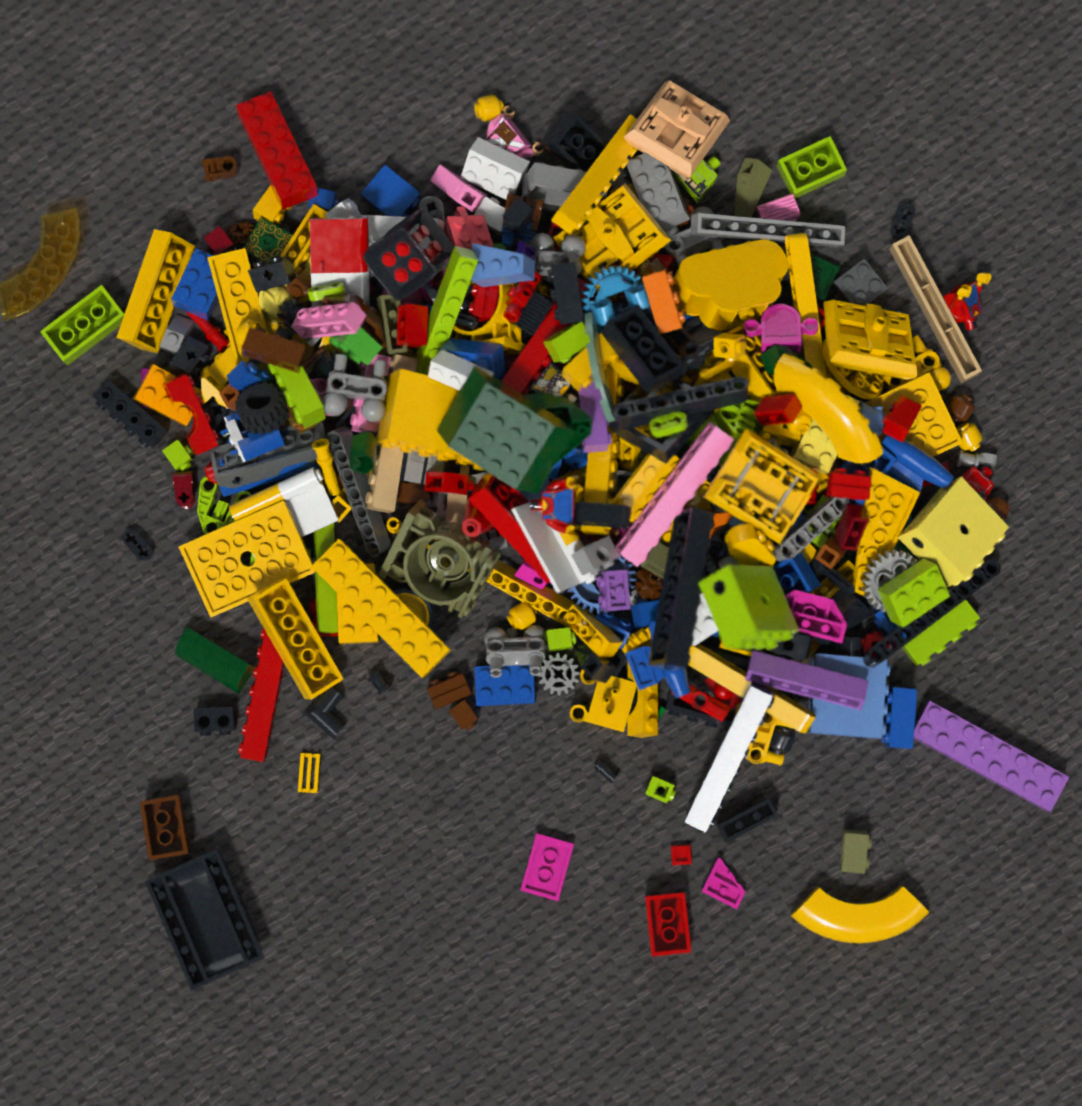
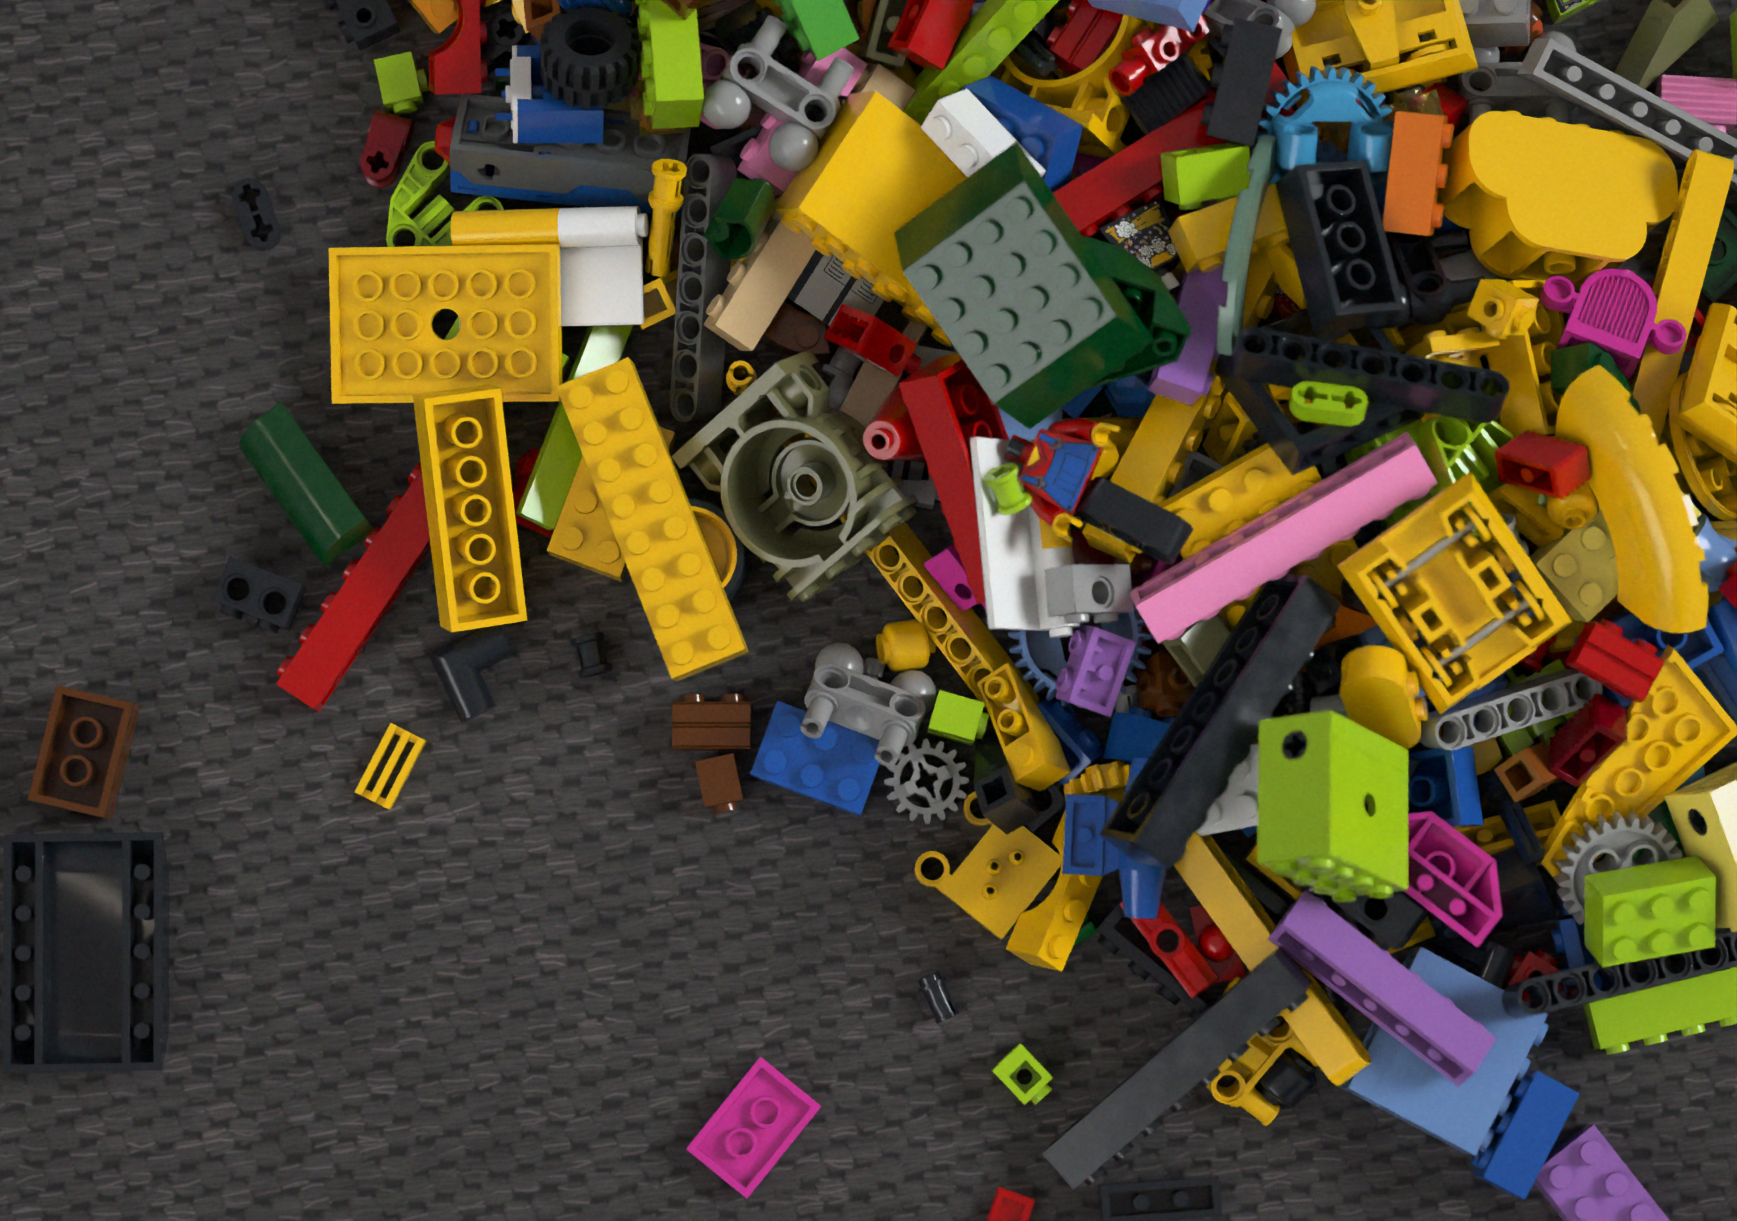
camera: 15 degrees right, 0 degrees up
(538, 525) = (1007, 489): none -> lime bush

